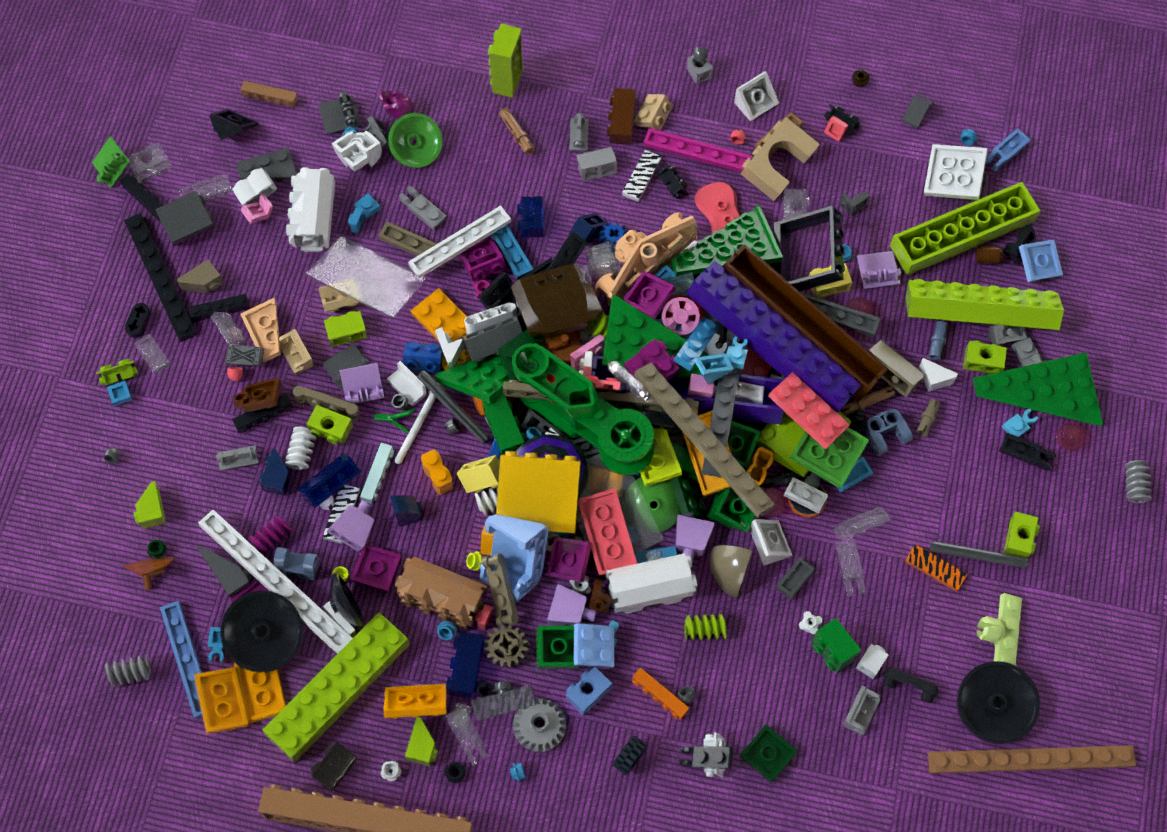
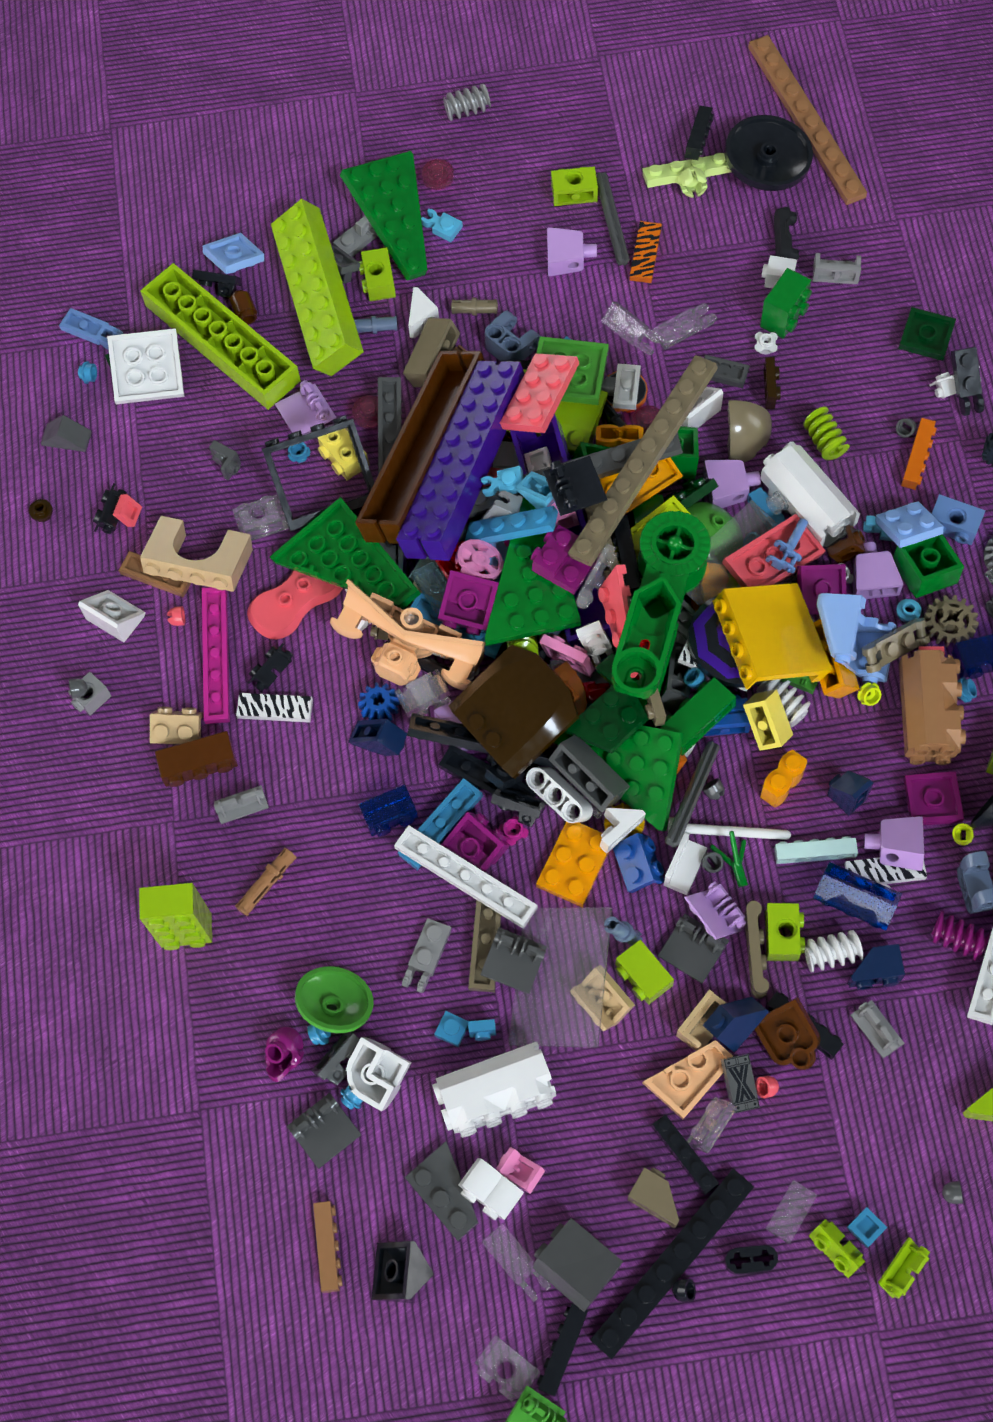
camera: 105 degrees left, 0 degrees up
(86, 407) = (897, 1277): none -> lime hinge
(139, 274) = (684, 1290): none -> black hinge
(283, 365) = (735, 1021): none -> dark blue slope
(375, 321) = (622, 931): none -> sand blue pin
(390, 252) = (513, 960): none -> dark grey hinge
(529, 627) = (908, 616): none -> medium azure plate
(597, 164) = (279, 763): light grey hinge -> none
(608, 543) = (787, 549): none -> medium blue piece
(697, 379) = (574, 485): none -> black hinge
(774, 609) = (771, 374): none -> dark brown plate
(955, 504) = (567, 251): none -> lavender torso
(1026, 451) = (473, 210): black hinge -> none
(1041, 656) = (699, 133): none -> black piece

